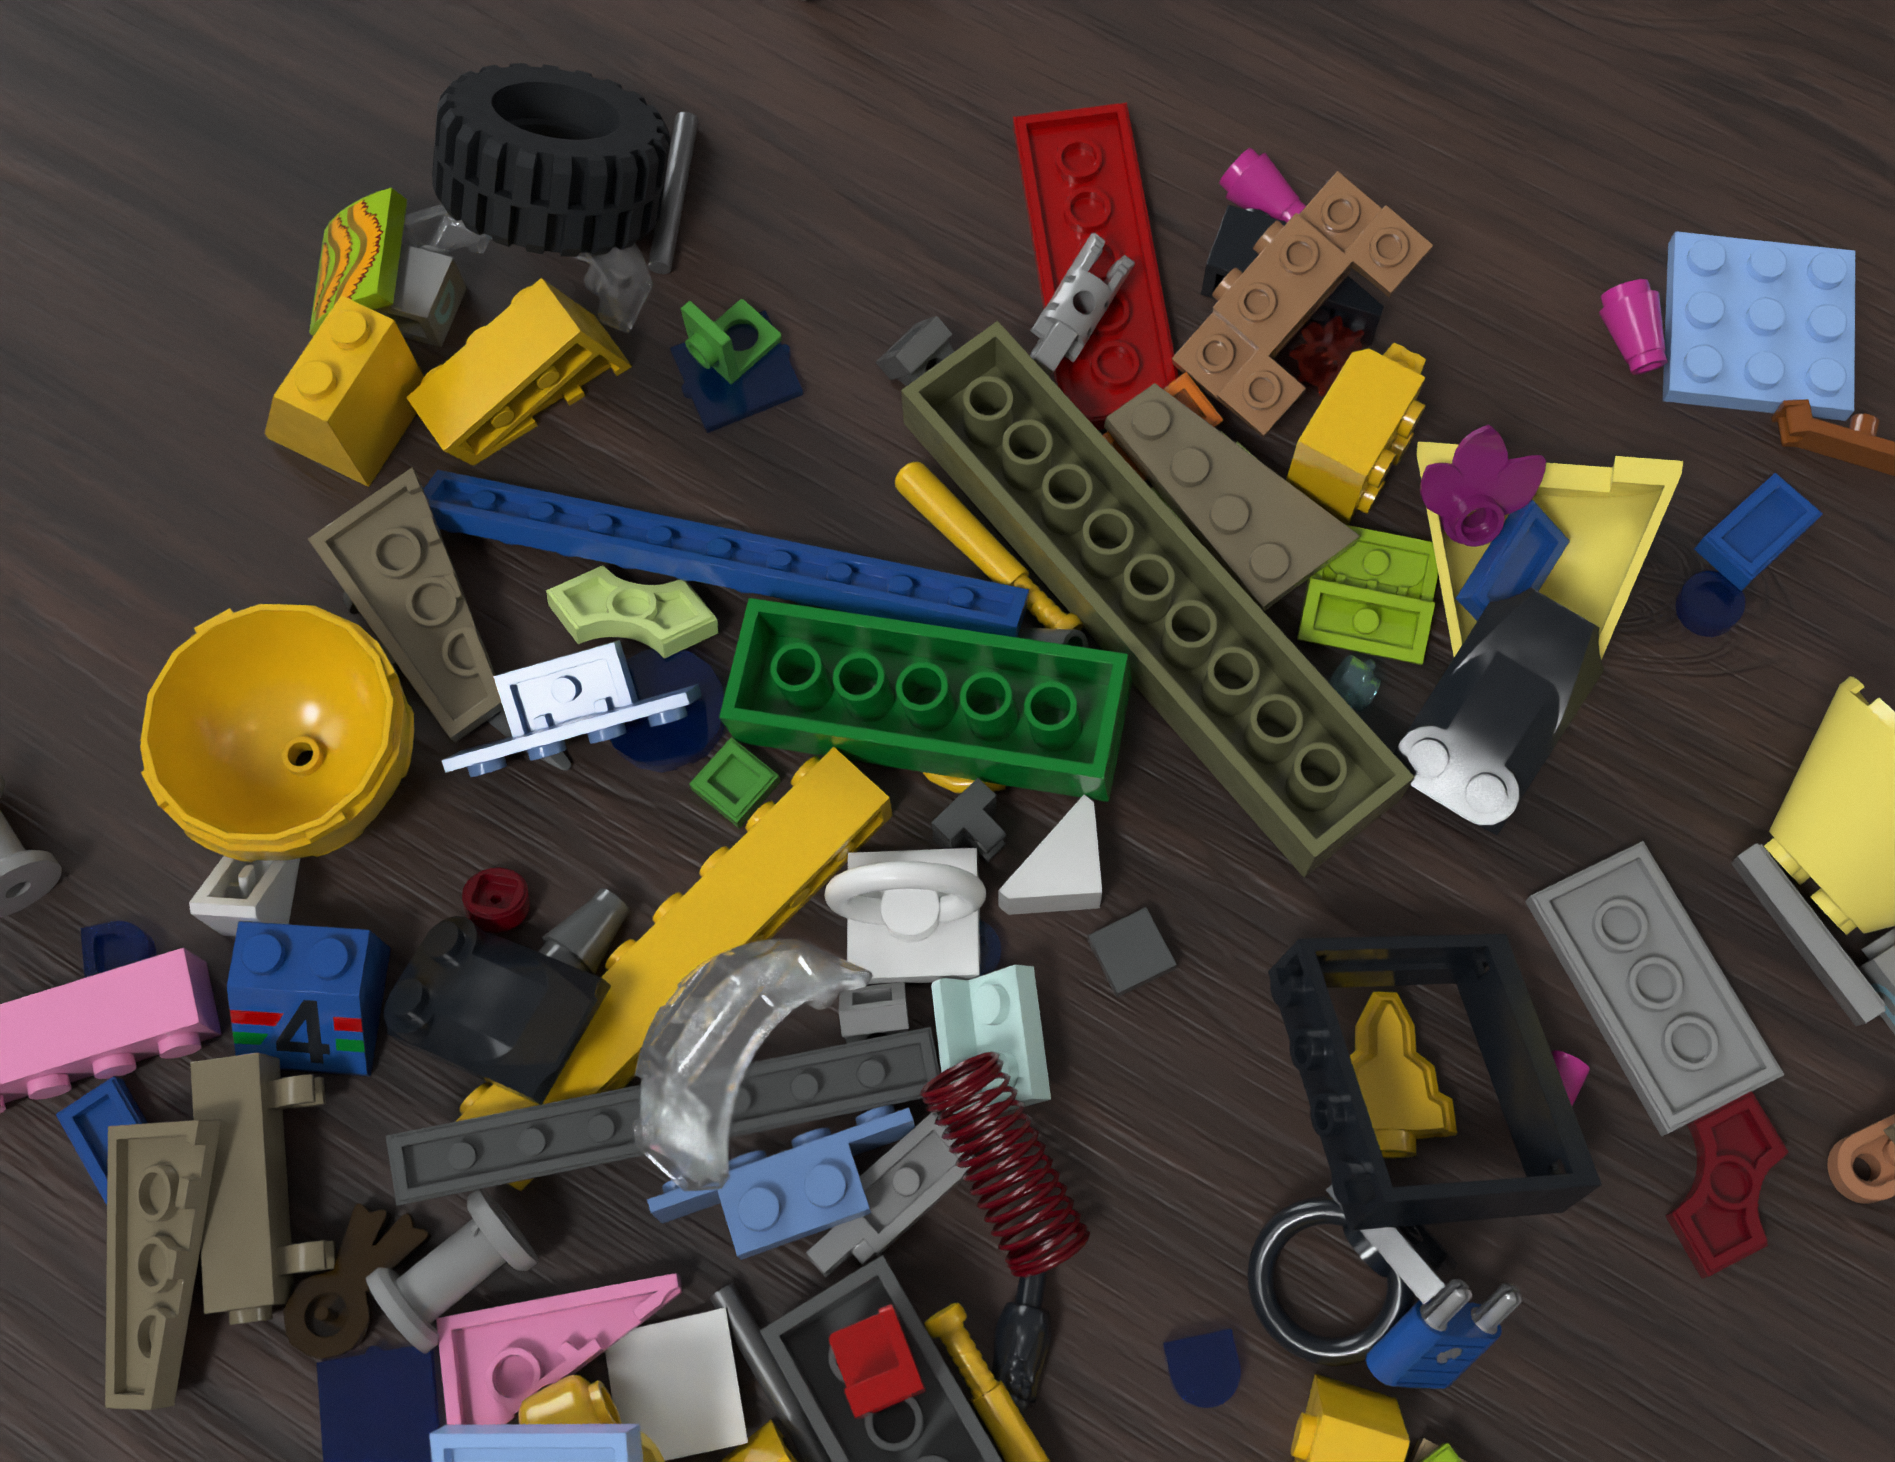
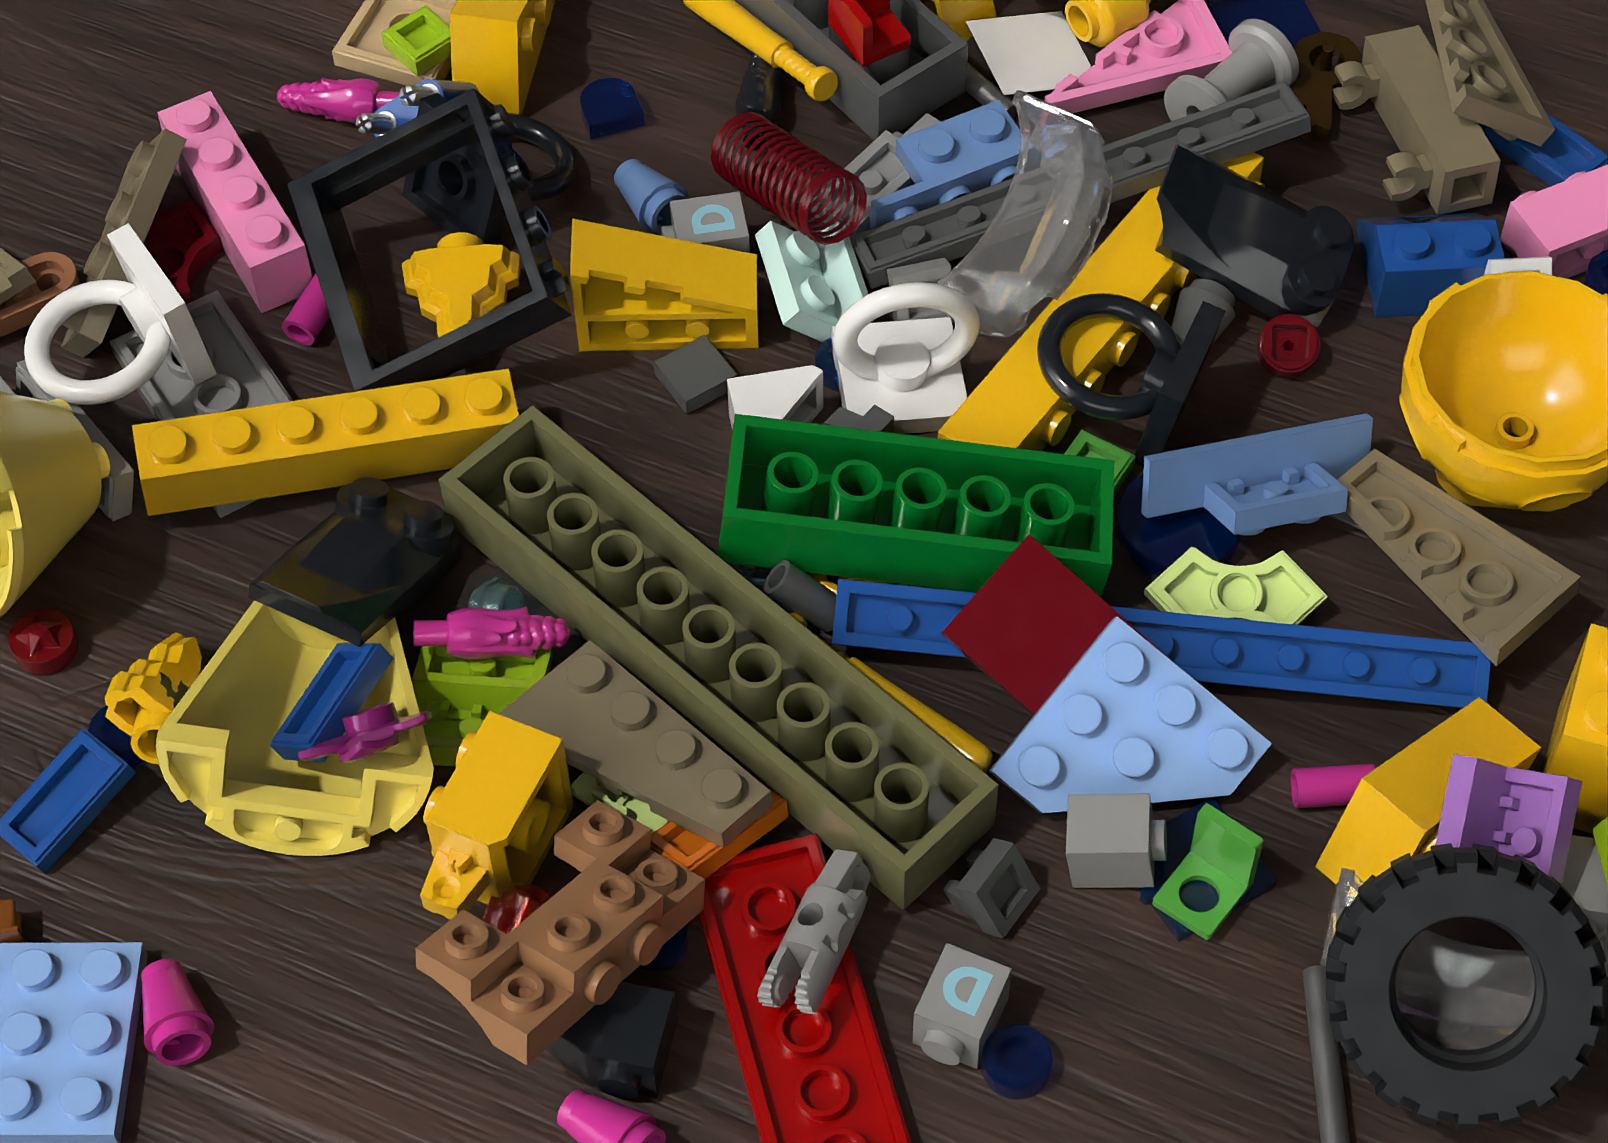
camera: 170 degrees right, 15 degrees down
(464, 288) = (1511, 811): none -> medium lavender bracket
(595, 420) = (1326, 784): none -> dark pink piece
(633, 825) = (1167, 379): none -> black tile
(770, 471) = (1128, 727): none -> light blue plate
(804, 373) = (1113, 840): none -> light grey brick
(818, 539) = (1030, 624): none -> dark red tile
(923, 223) = (1016, 1061): none -> clear blue tile
(962, 253) = (960, 1006): none -> light grey brick
(1104, 1124) = (710, 221): none -> light grey brick
(1161, 1037) = (659, 291): none -> yellow wedge
(1163, 1204) = (648, 194): none -> medium blue cone
(1361, 634) = (492, 633): none -> dark pink piece
(1534, 869) = (319, 441): none -> yellow brick
(1536, 1418) = (335, 98): none -> dark pink piece
(1667, 1260) = (238, 203): none -> bright pink brick
(1674, 607) = (151, 690): none -> yellow rock
(1741, 1045) = (152, 309): none -> white tile
(1784, 1212) = (135, 204): none -> dark tan wing
(1799, 708) = (43, 641): none -> dark red tile

